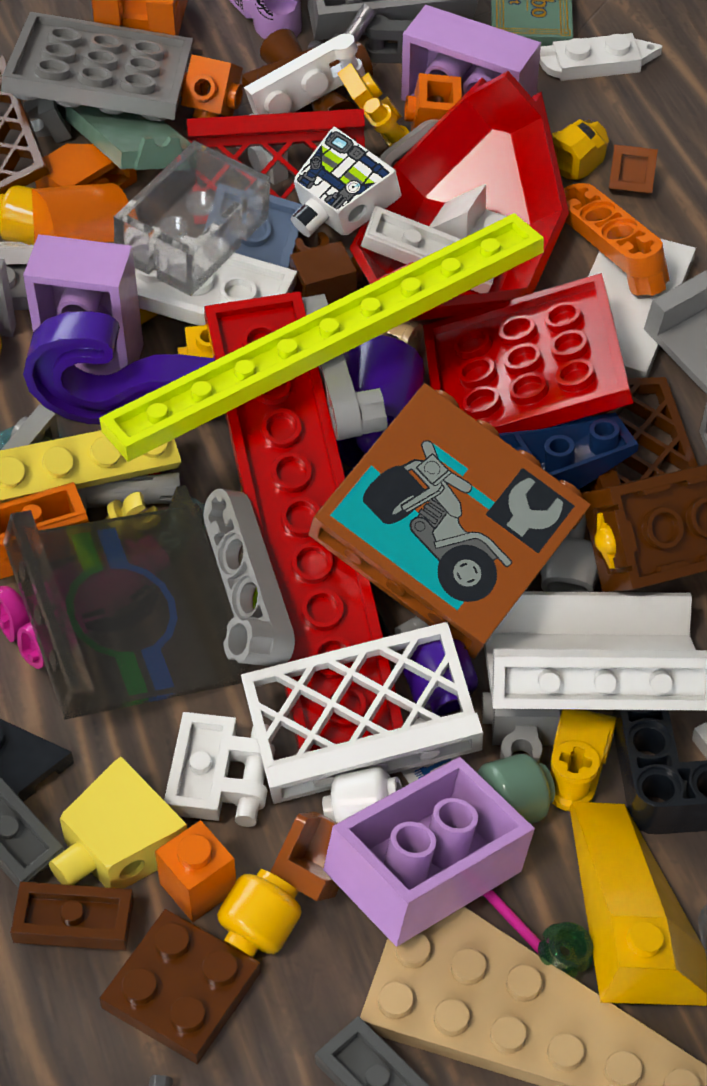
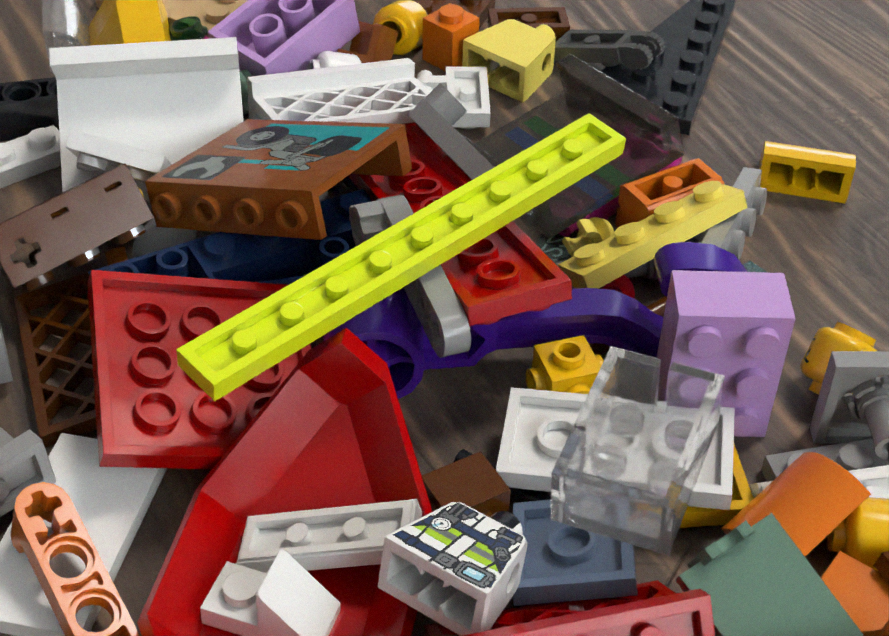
camera: 170 degrees right, 10 degrees down
(627, 585) = (104, 154): none -> white plate

